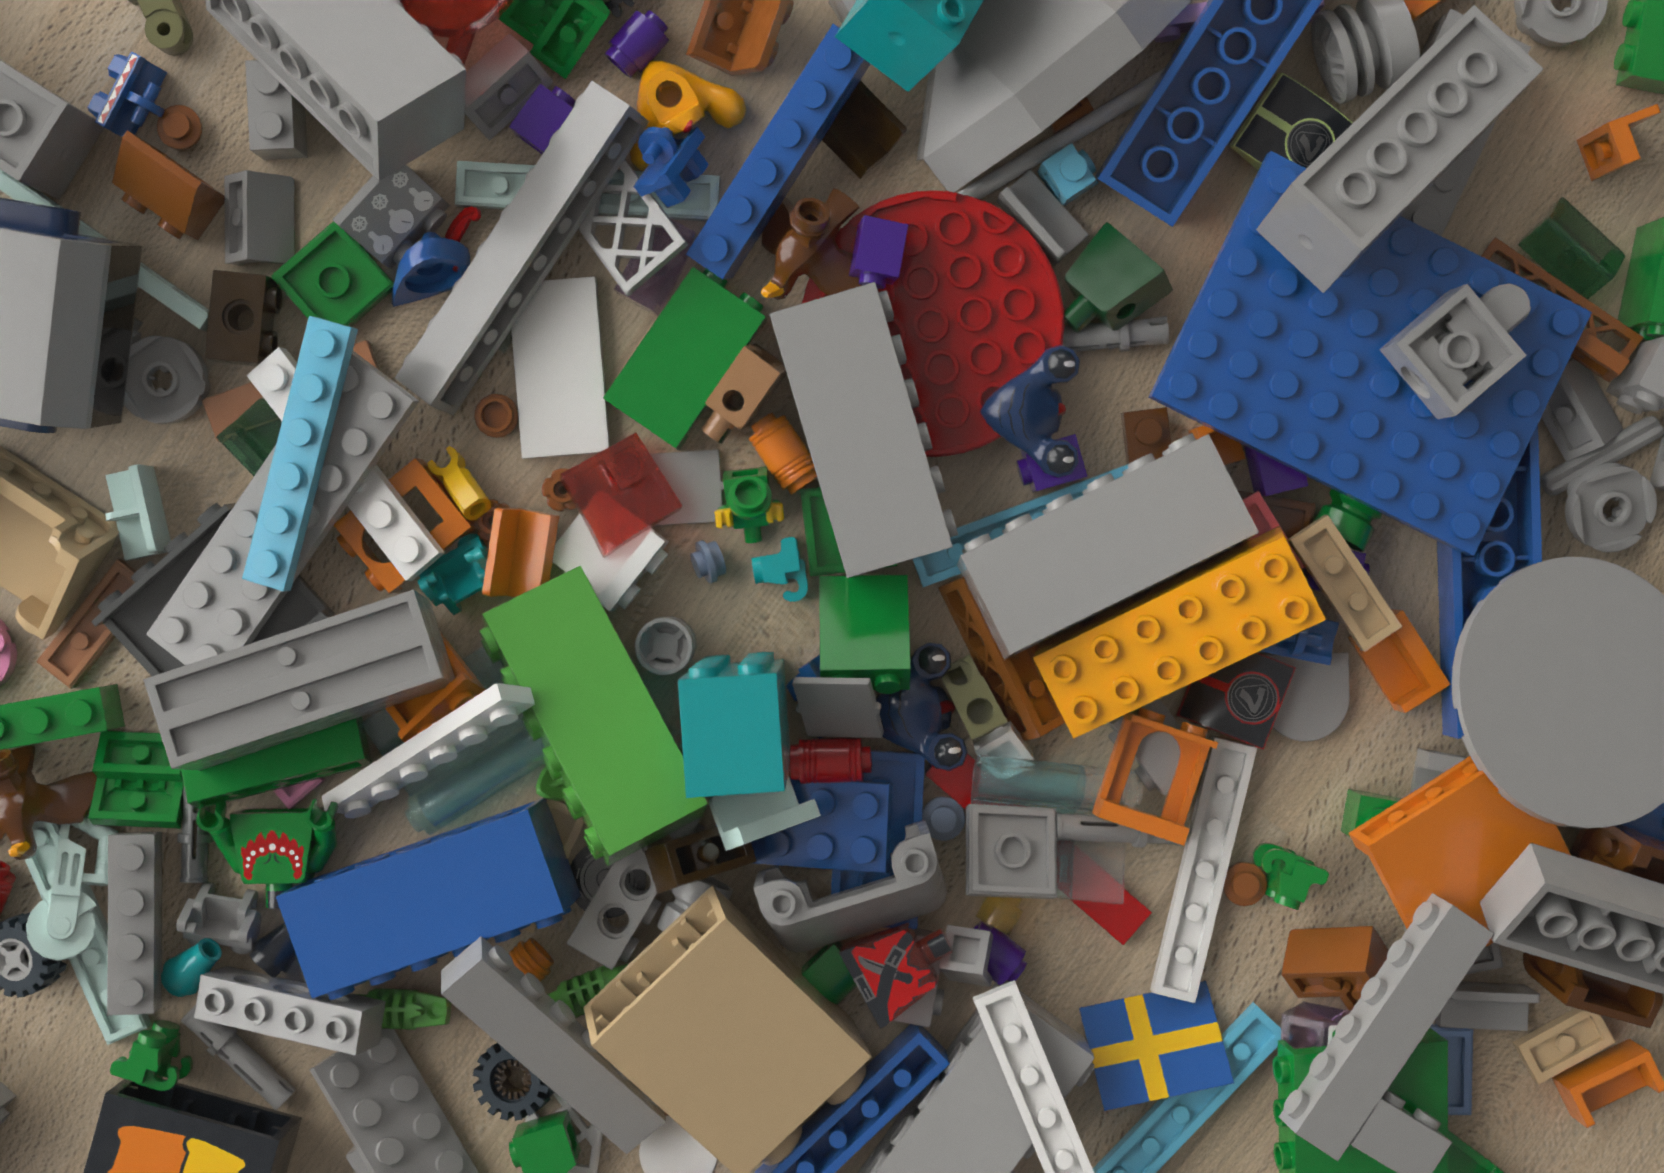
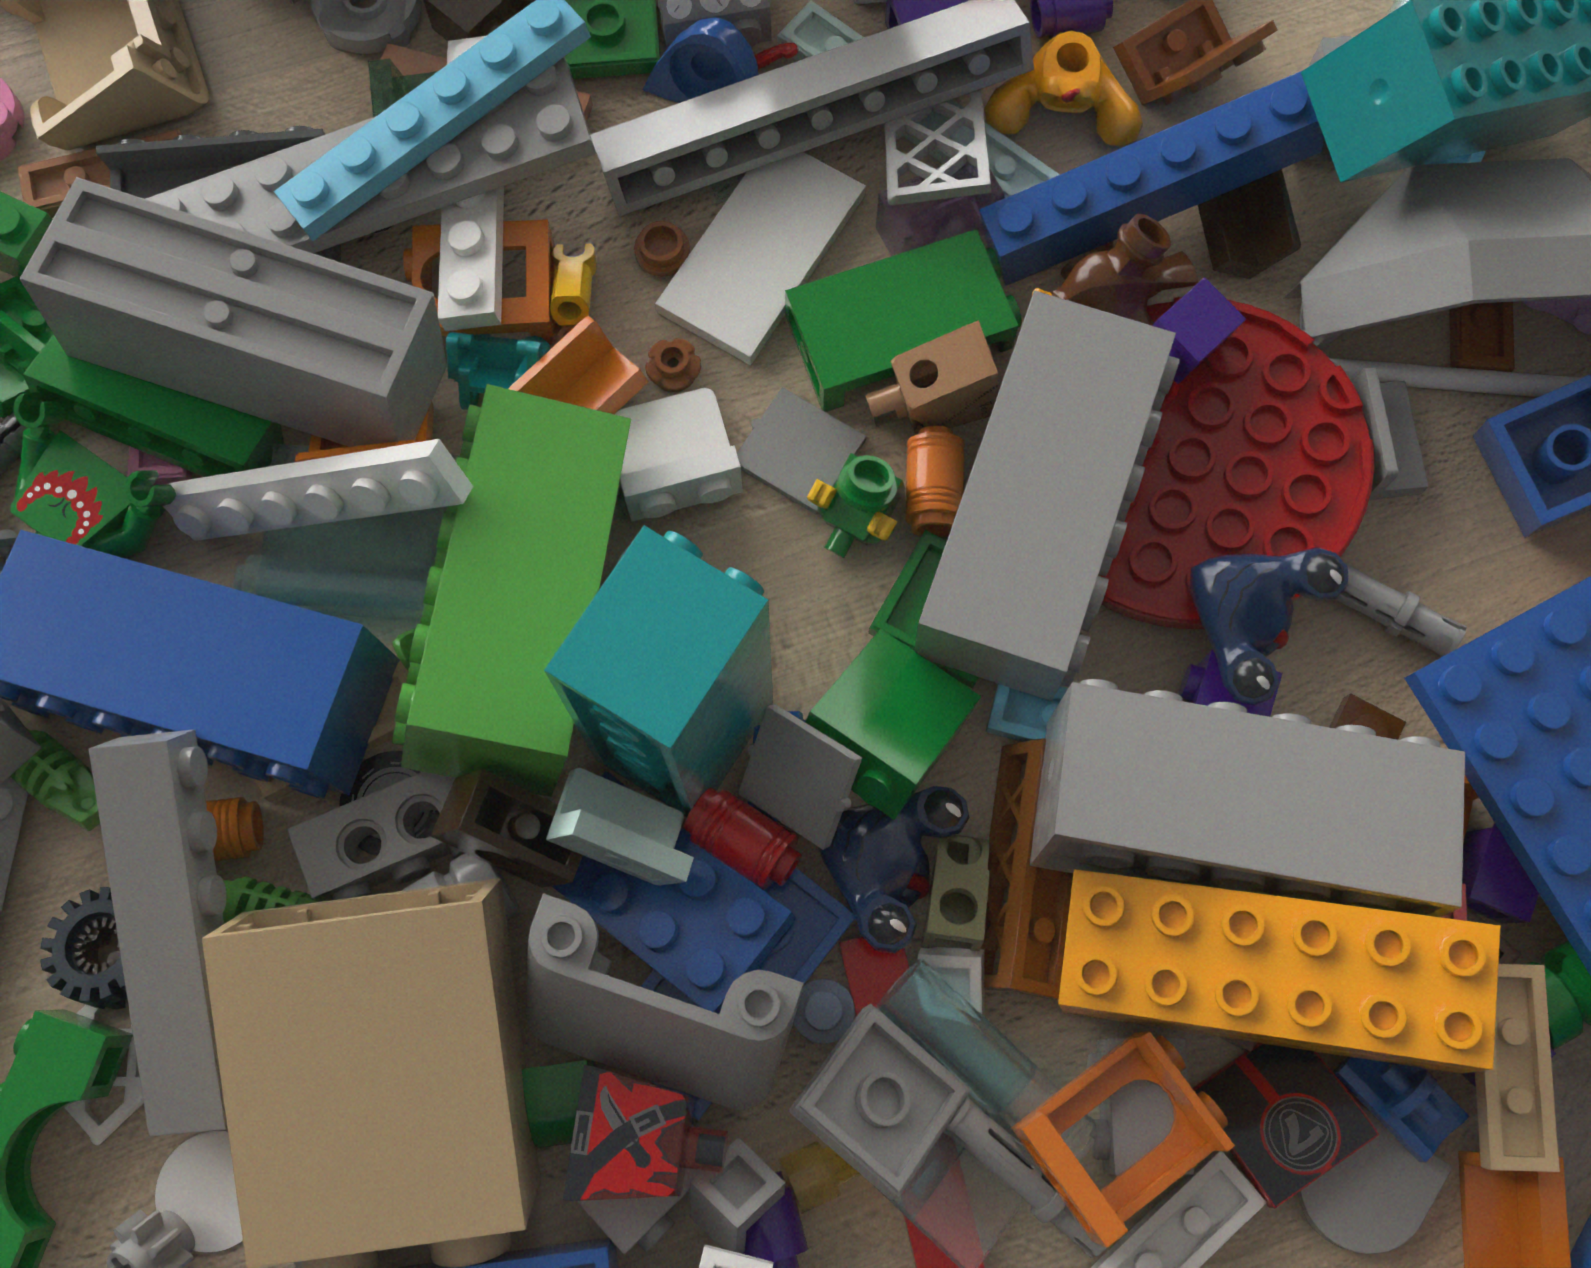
camera: 35 degrees right, 15 degrees down
(138, 512) = (242, 92): light aqua panel -> none
(620, 493) = (728, 398): clear red plate -> none
(668, 162) = (1027, 121): blue hips -> none
(708, 561) = (769, 536): sand blue plate -> none
(781, 567) = (845, 593): teal piece -> none
(1068, 174) = (1455, 404): medium azure brick -> none
(1113, 282) = (1433, 545): dark green torso -> none

